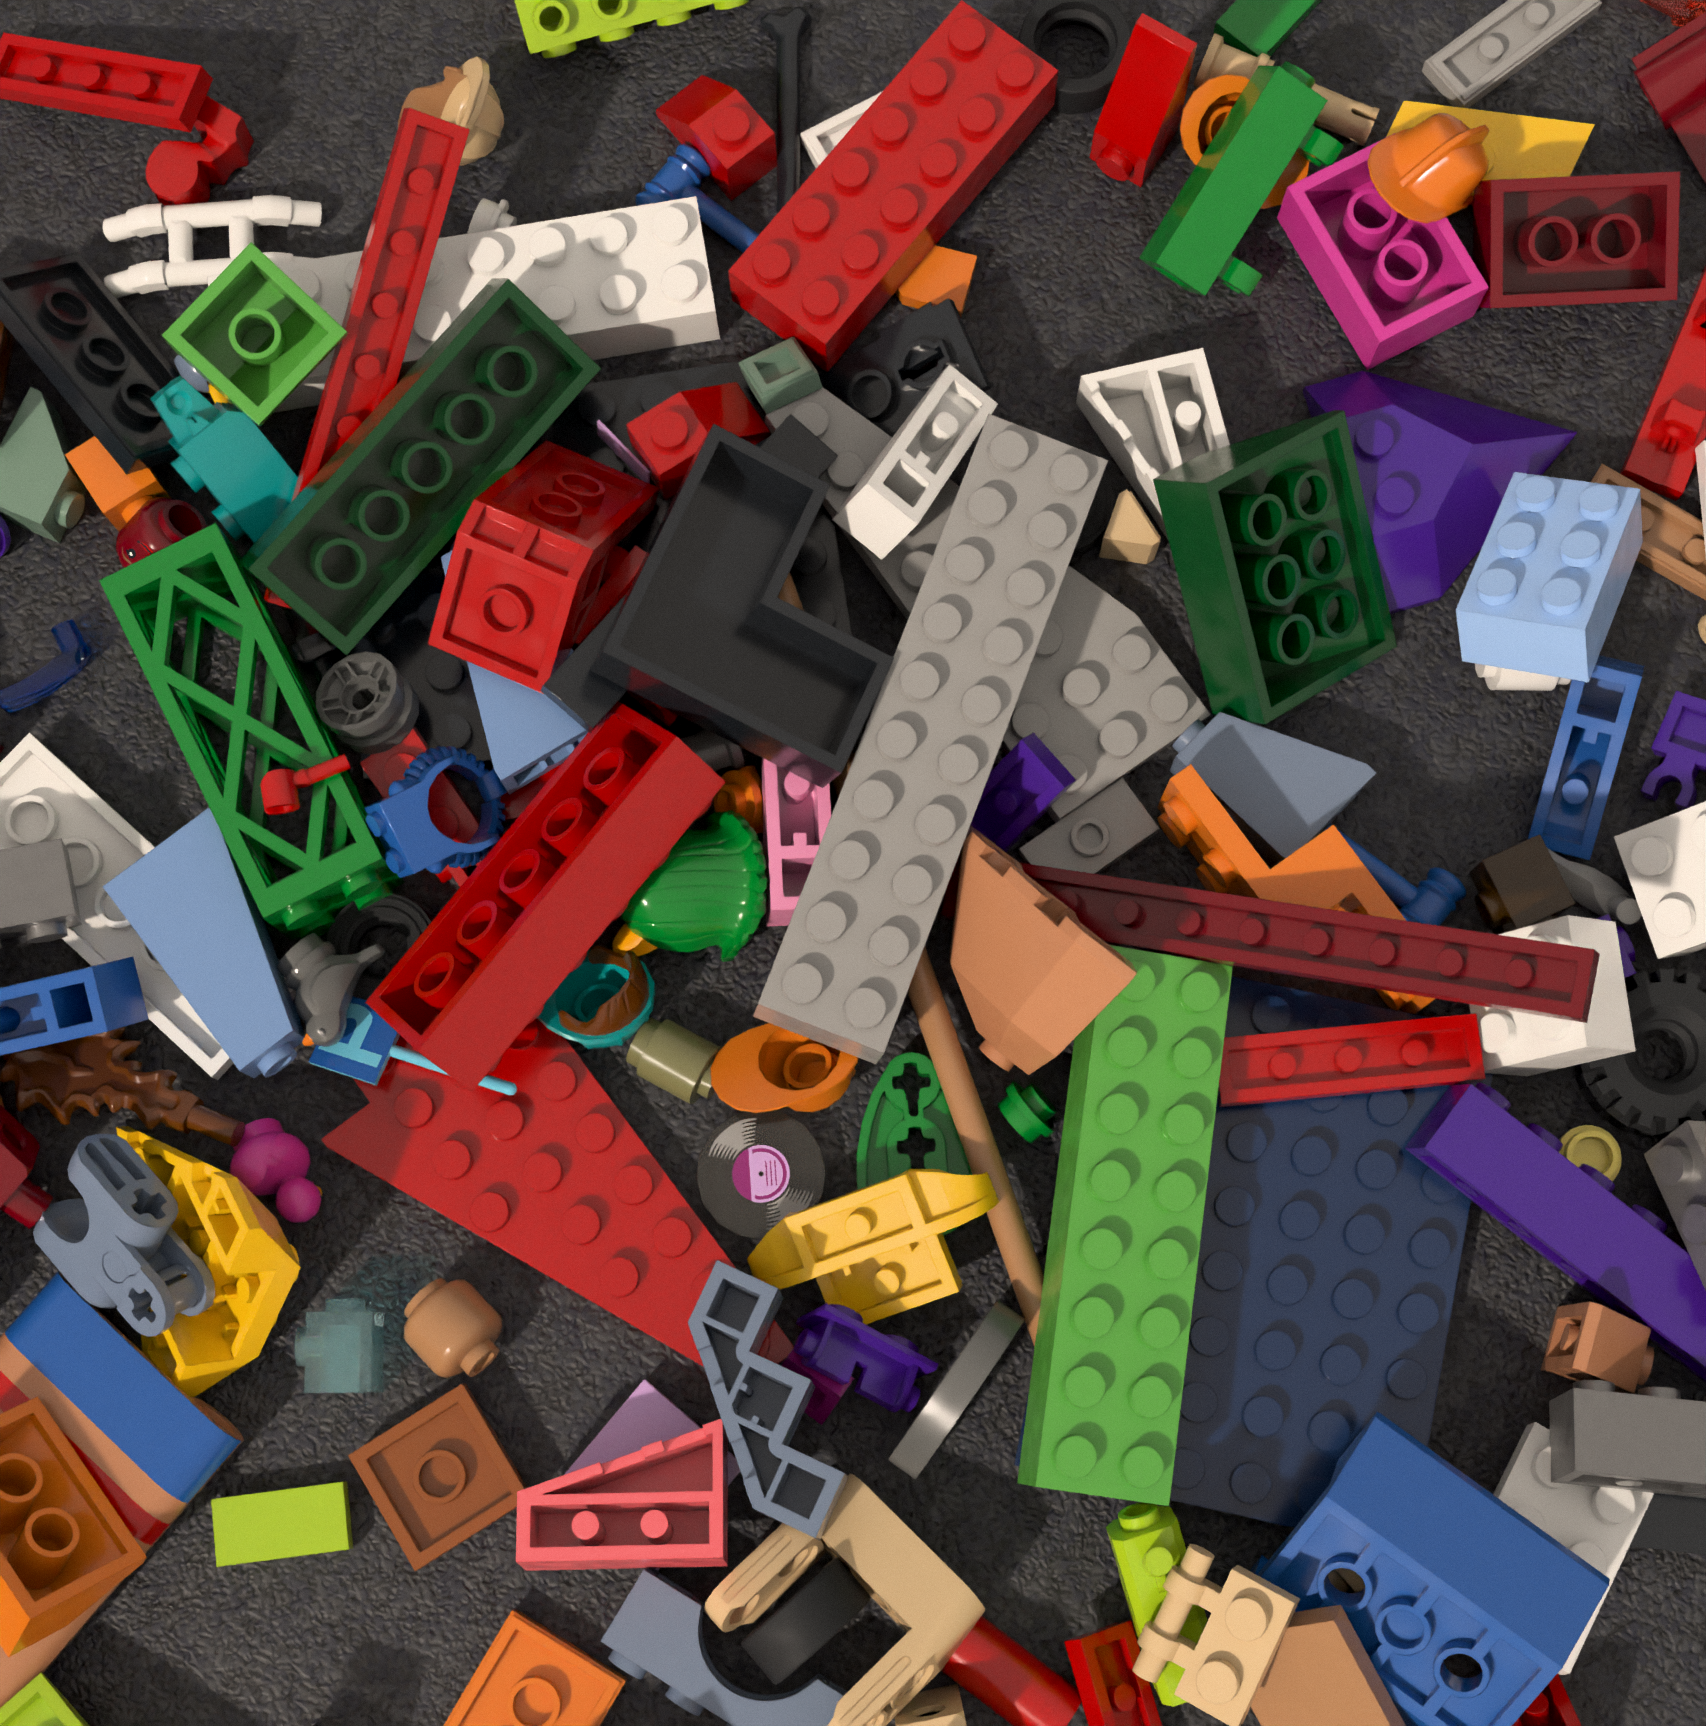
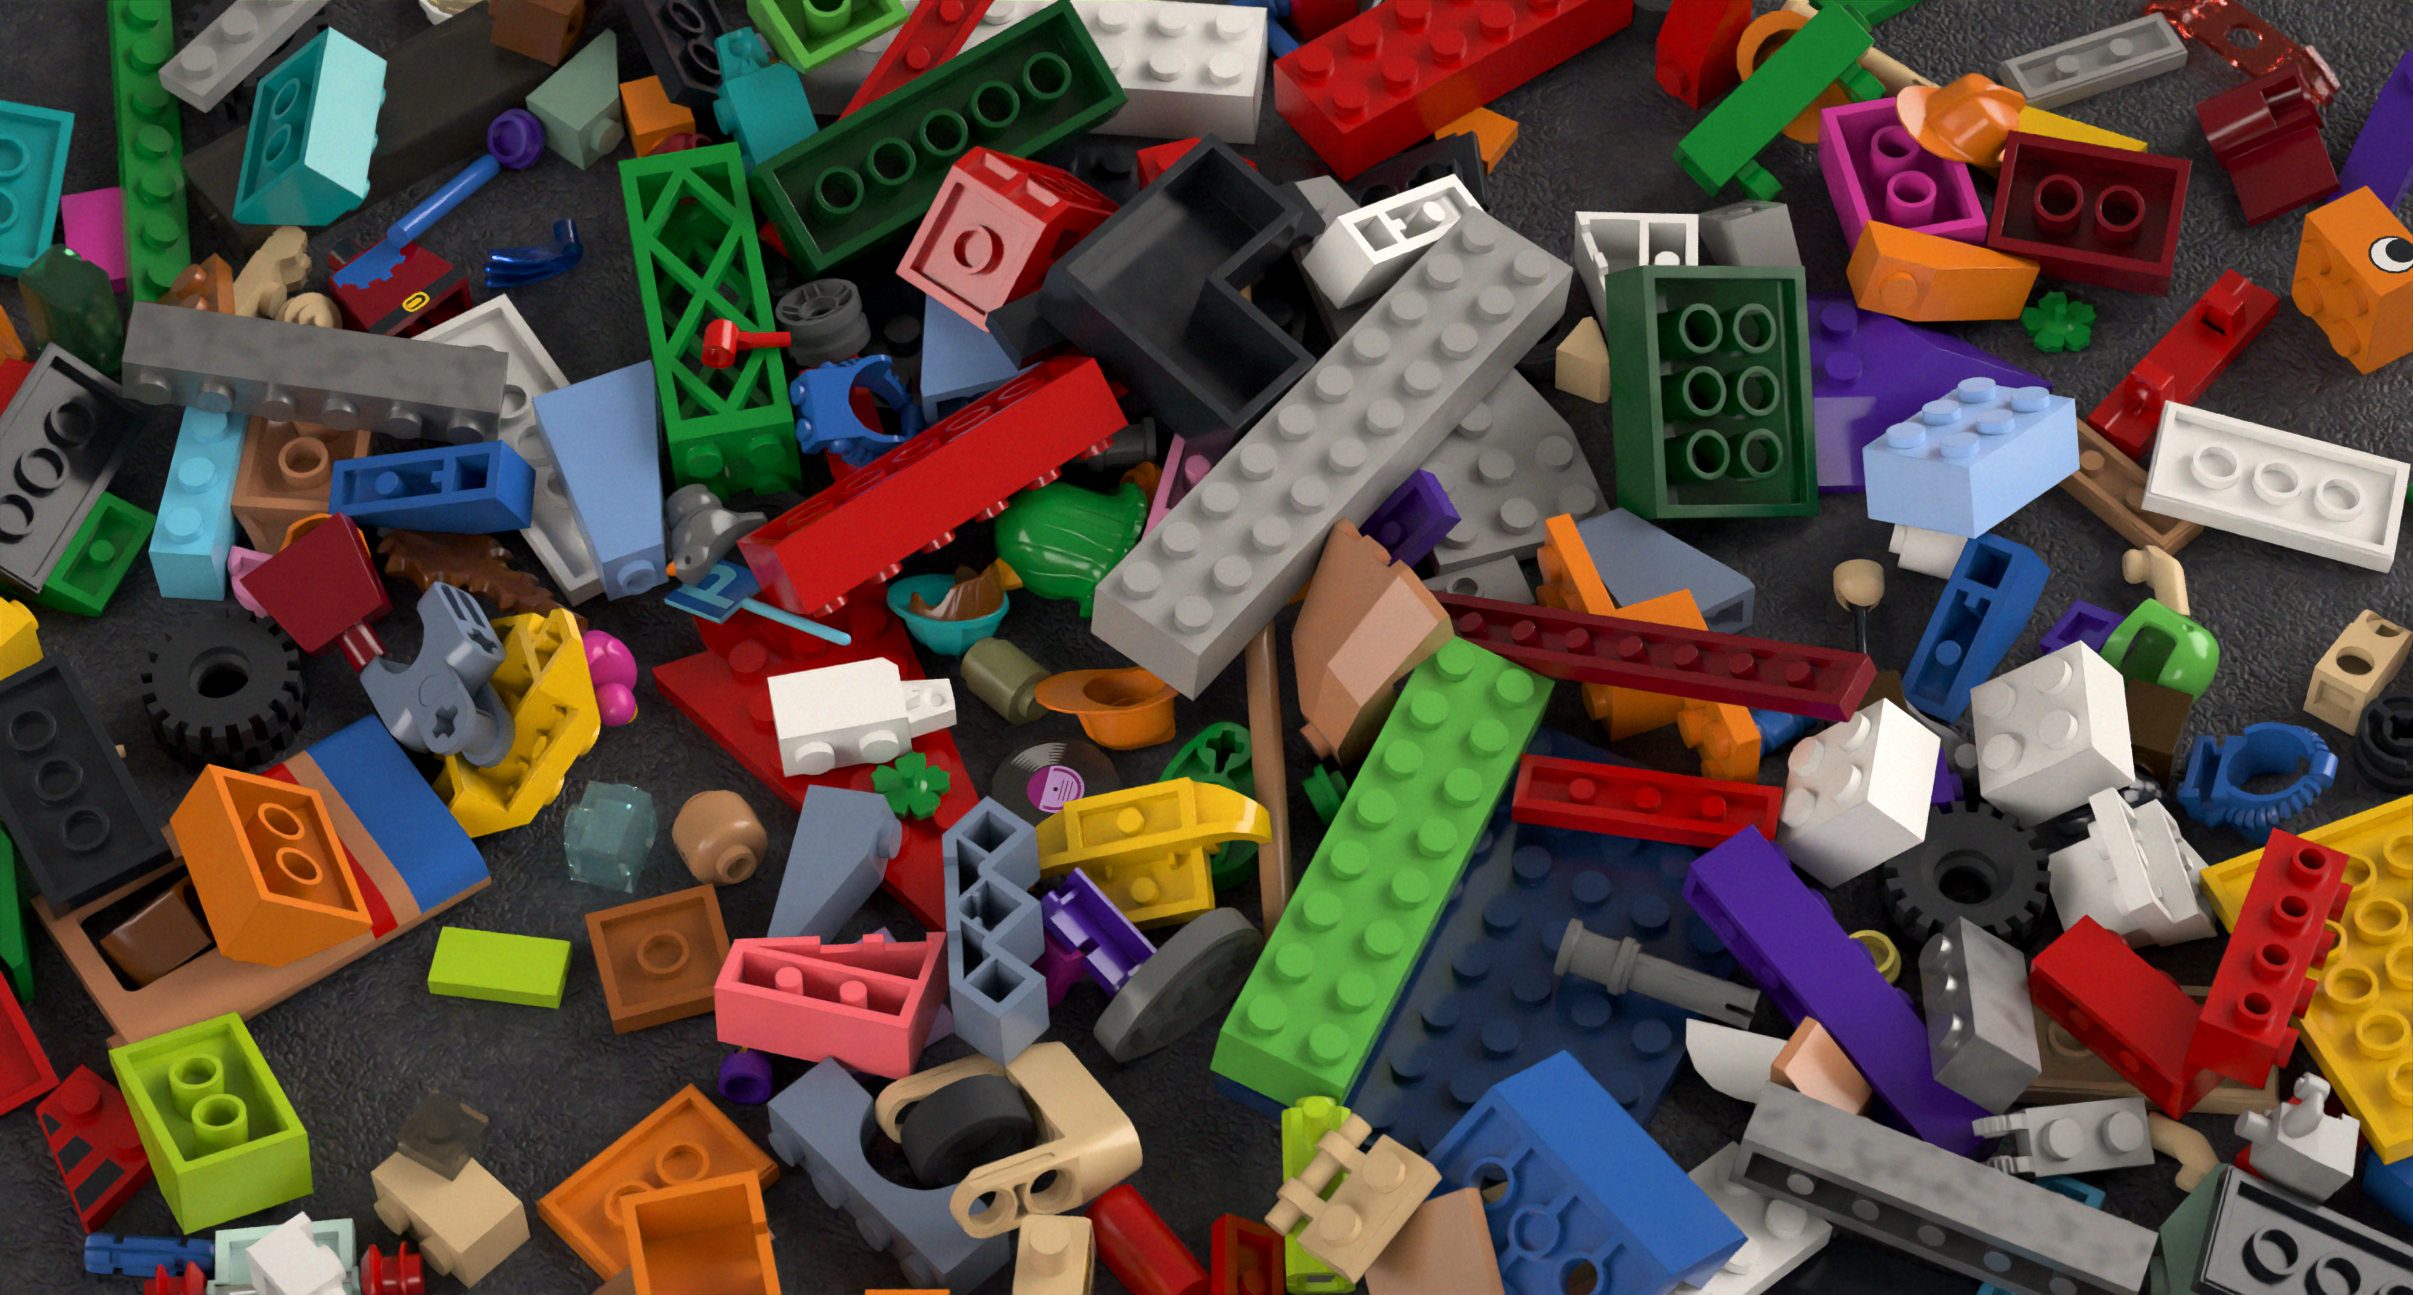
camera: 15 degrees right, 25 degrees down
(543, 1167) = (854, 714): none -> white hinge
(555, 1587) = (734, 1075): none -> dark purple hinge
(577, 1335) = (834, 861): none -> sand blue slope
(622, 452) = (1122, 181): lavender piece -> none
(622, 1222) = (911, 786): none -> green plant
(780, 375) = (1296, 160): sand green tile -> none
(1247, 346) = (1750, 234): none -> light grey slope
(1383, 1257) = (1625, 967): none -> dark grey pin
(1441, 361) = (1936, 277): none -> orange slope
(1464, 732) = (1858, 589): none -> tan hinge
(1507, 1303) = (1732, 1058): none -> white brick
(1561, 357) = (2058, 325): none -> green plant

